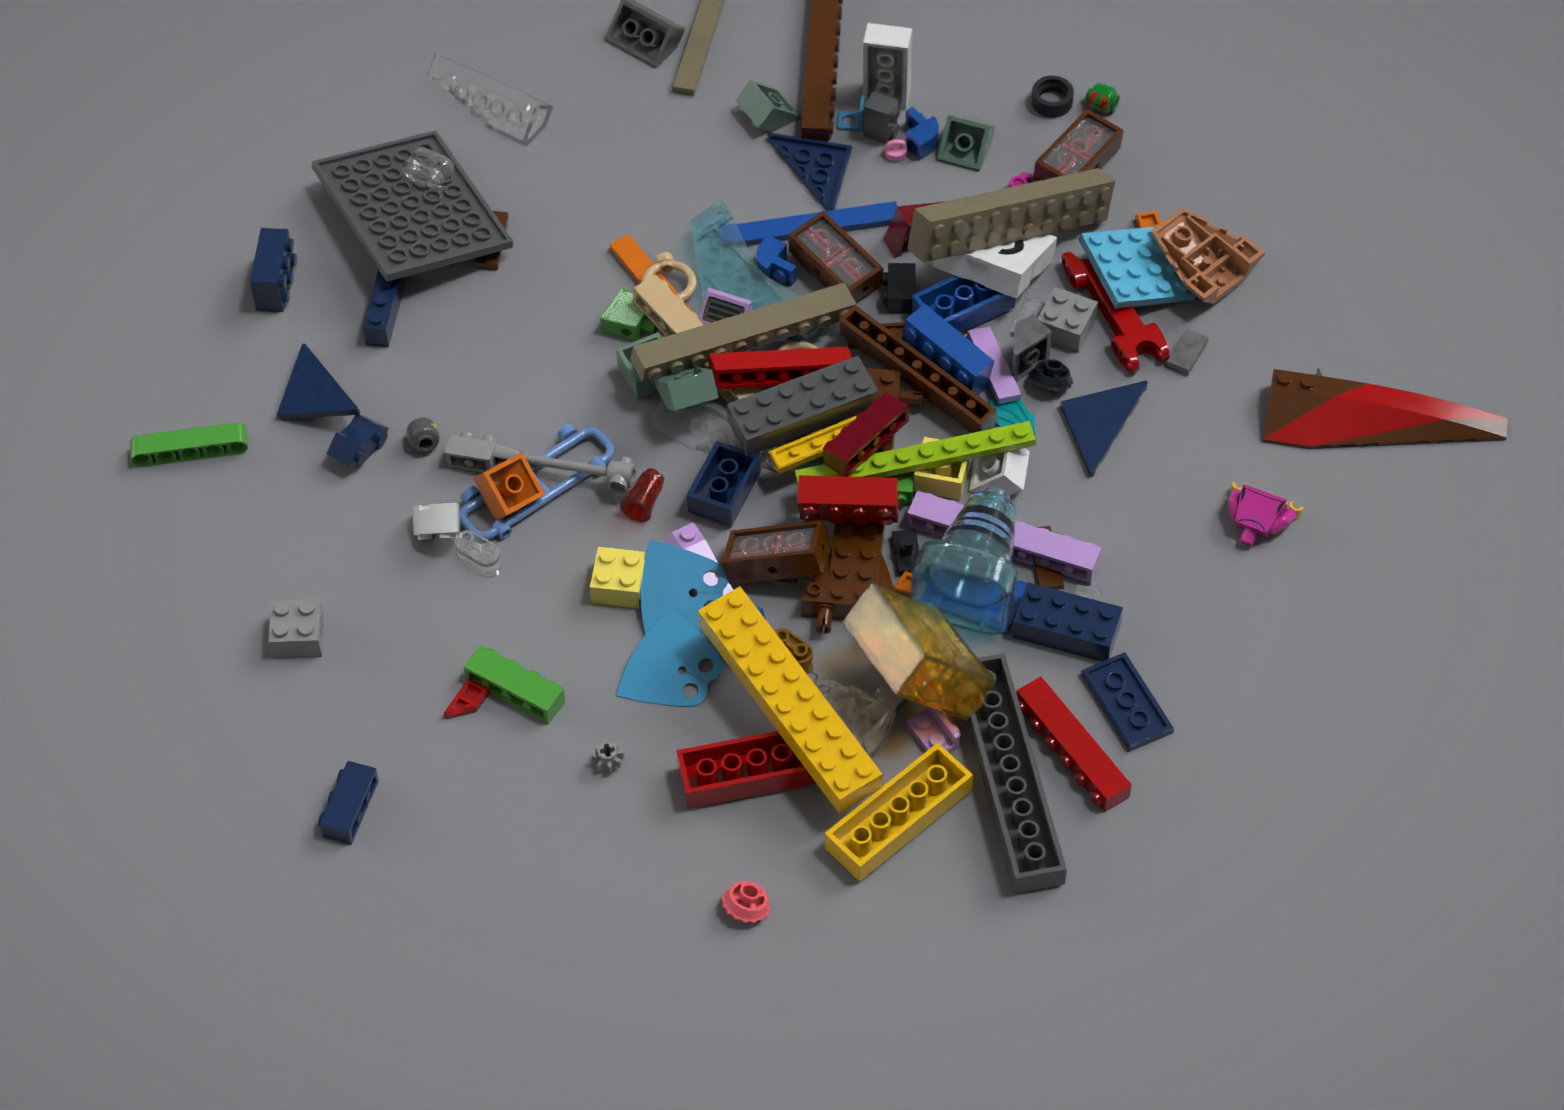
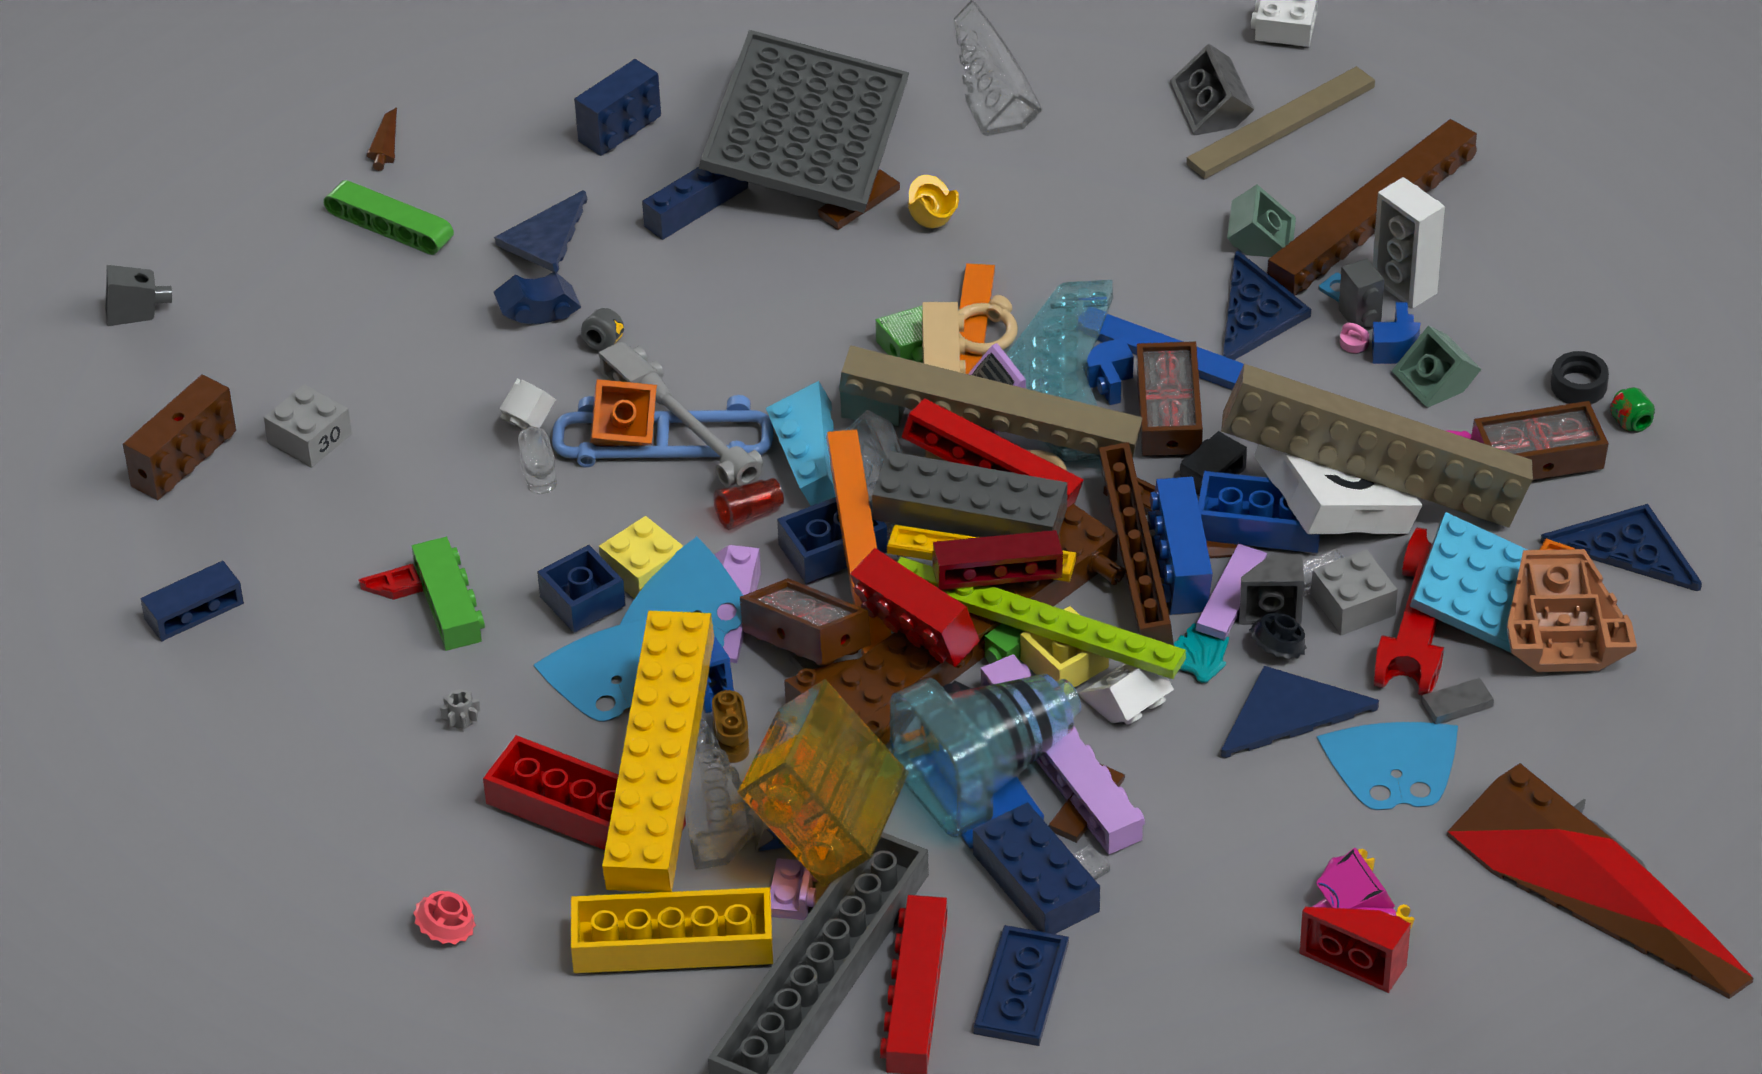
camera: 40 degrees right, 10 degrees down
(71, 614) = (132, 295): none -> dark grey torso
(124, 394) = (383, 145): none -> reddish brown bar
(223, 693) = (179, 437): none -> reddish brown brick
(428, 168) = (850, 94): clear brick -> none
(550, 215) = (931, 201): none -> yellow helmet
(603, 623) = (581, 588): none -> dark blue brick
(642, 430) = (802, 428): none -> medium azure wedge
(687, 389) = (872, 420): sand green slope -> none
(742, 464) = (854, 513): none -> orange tile
(1172, 413) = (1371, 752): none -> dark azure piece
(1184, 186) = (1631, 542): none -> dark blue tile
(1297, 544) = (1357, 943): none -> red slope

